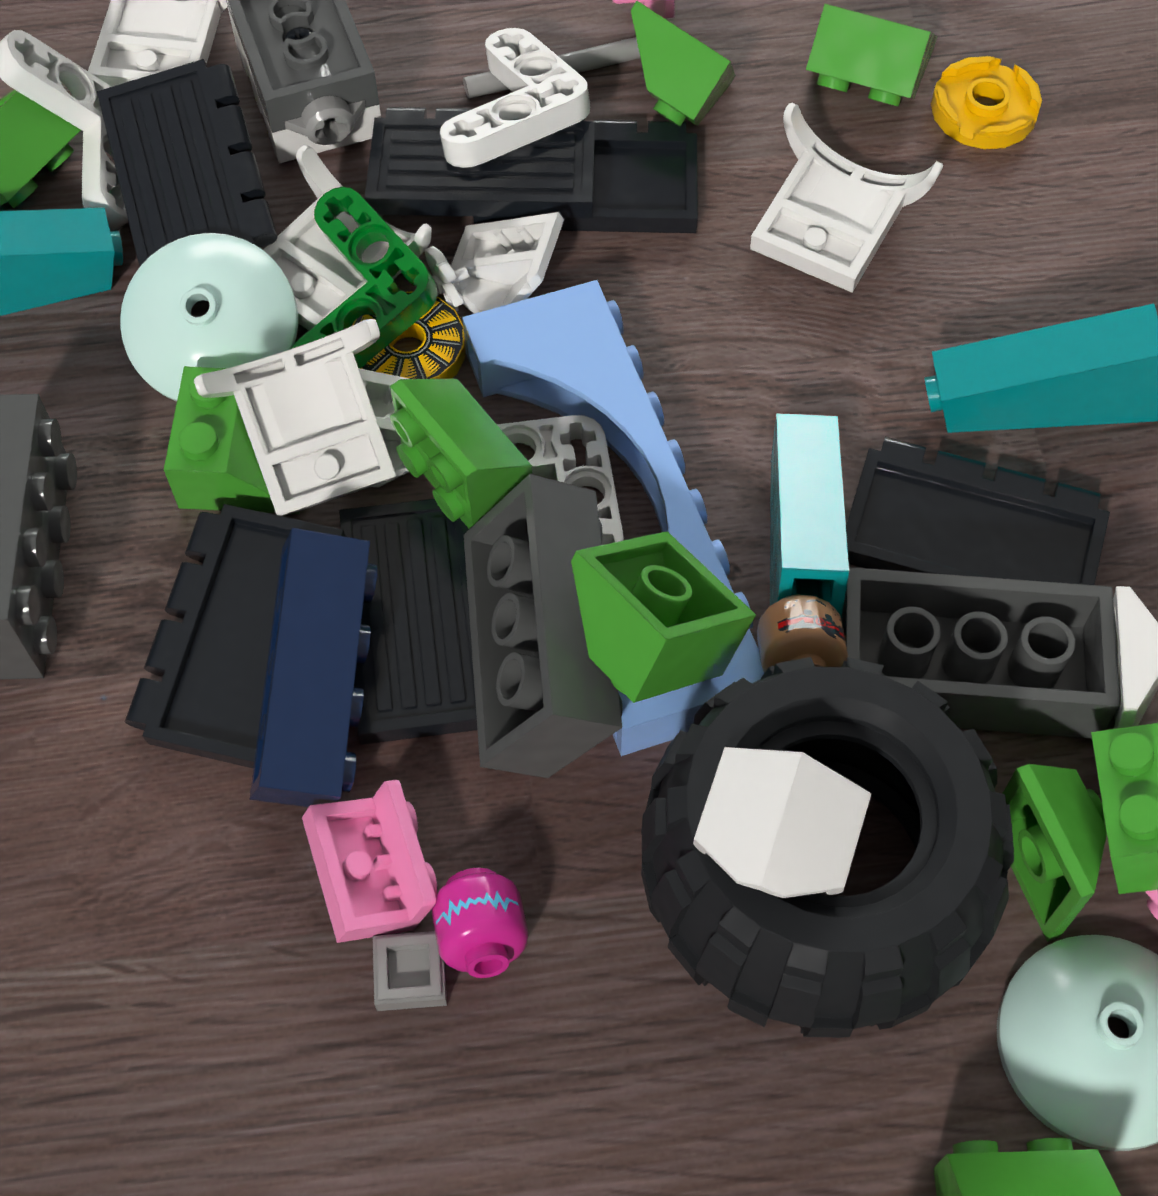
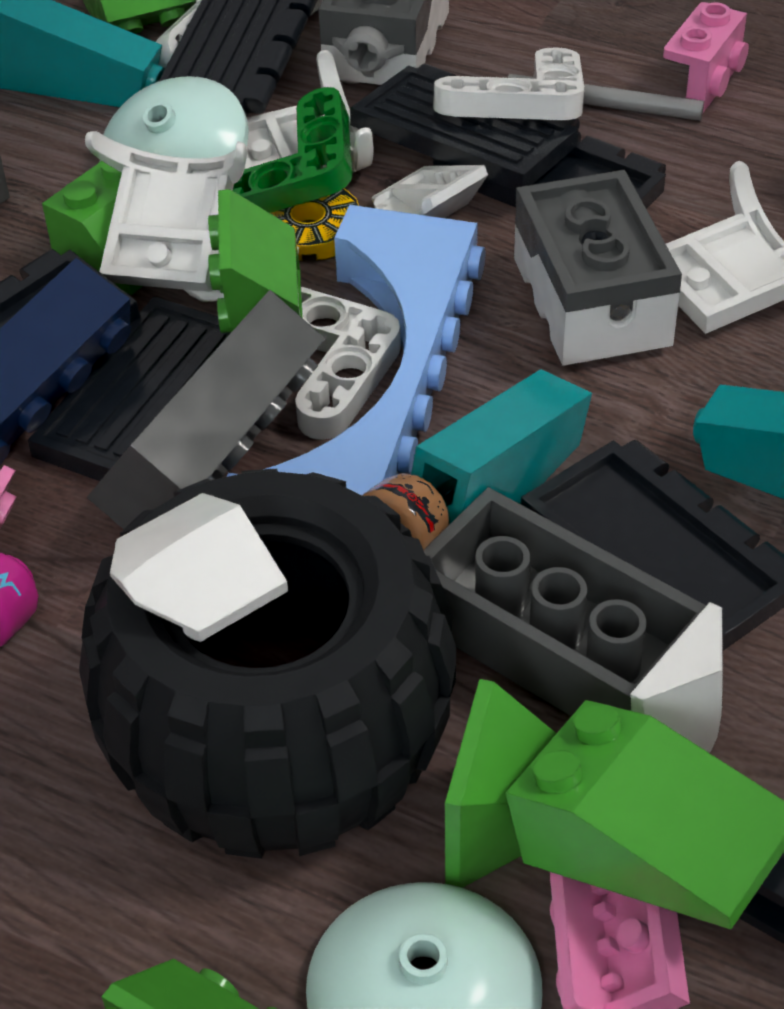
camera: 35 degrees right, 15 degrees down
(445, 276) = (366, 185): white plant -> none
(656, 615) = (277, 417): bright green slope -> none
(678, 68) = (676, 119): bright green slope -> none
(736, 275) = (596, 267): none -> dark grey piece

